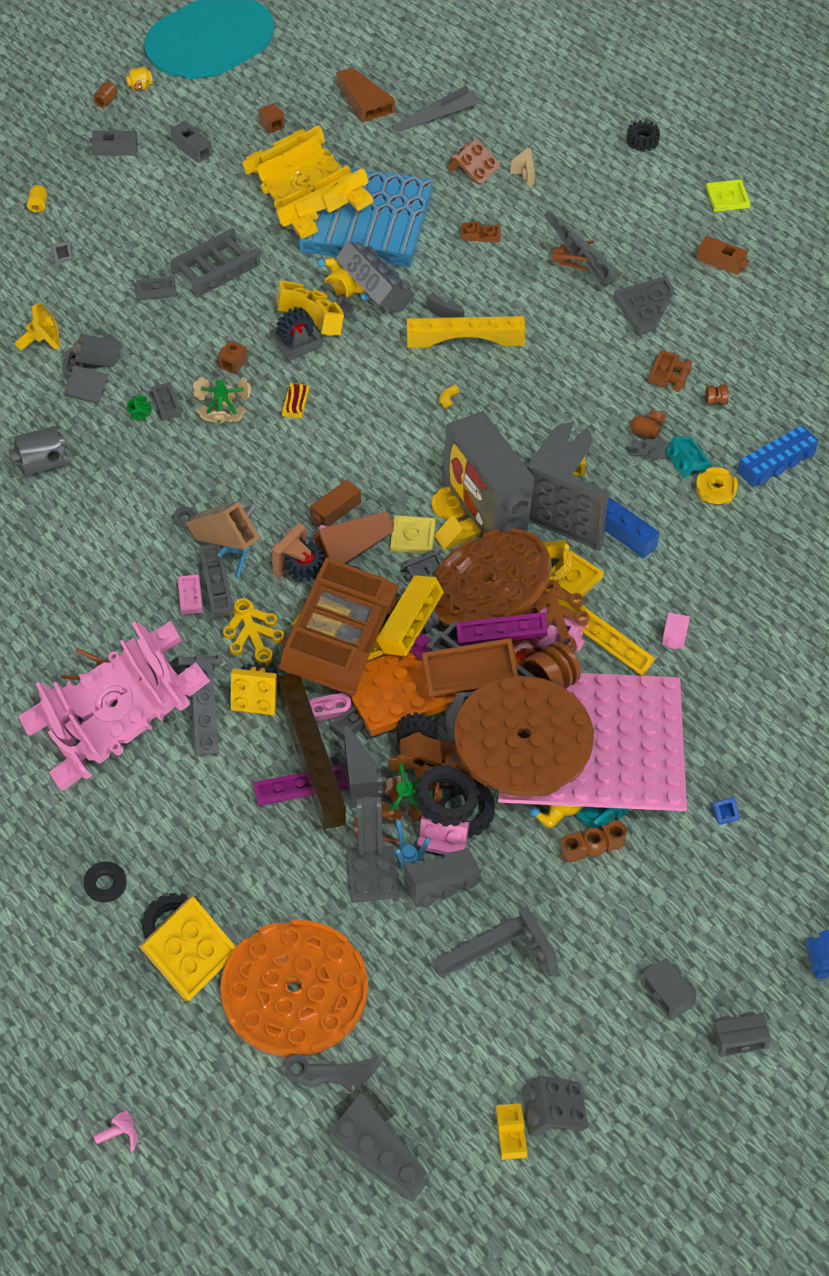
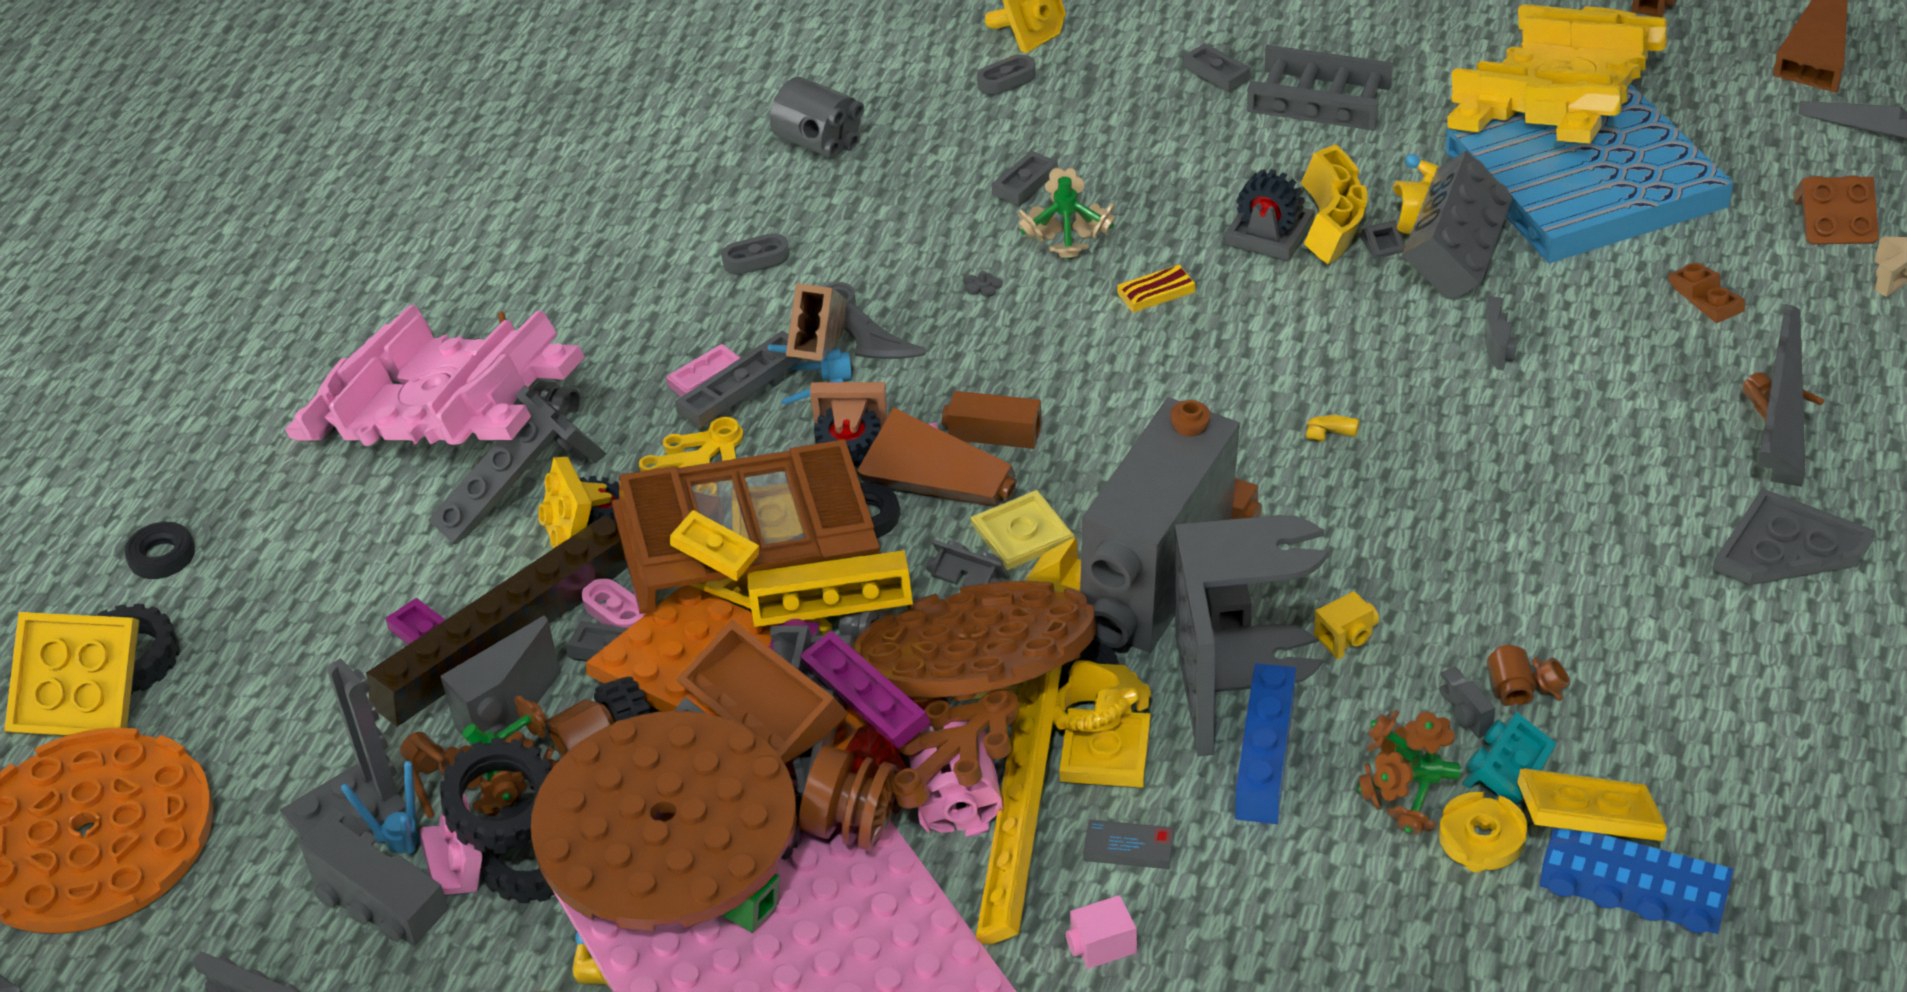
camera: 60 degrees right, 10 degrees down
(86, 384) = (979, 100): dark grey piece -> none
(96, 350) = (1034, 71): dark grey brick -> none
(115, 532) = (755, 253): none -> dark grey plate
(139, 407) = (983, 159): green gear -> none
(226, 459) = (982, 283): none -> dark grey plant
(232, 357) = (1165, 189): dark orange brick -> none
(362, 637) = (714, 545): none -> yellow plate
(430, 331) = (1517, 404): yellow arch -> none
(471, 423) = (1190, 417): none -> dark orange plate
(631, 598) = (1129, 844): none -> dark grey tile
(664, 368) = (1670, 634): dark orange plate -> none
(683, 485) = (1393, 765): none -> dark orange plant
(717, 394) = (1686, 727): dark orange wheel -> none
(736, 445) = (1591, 804): none -> yellow tile

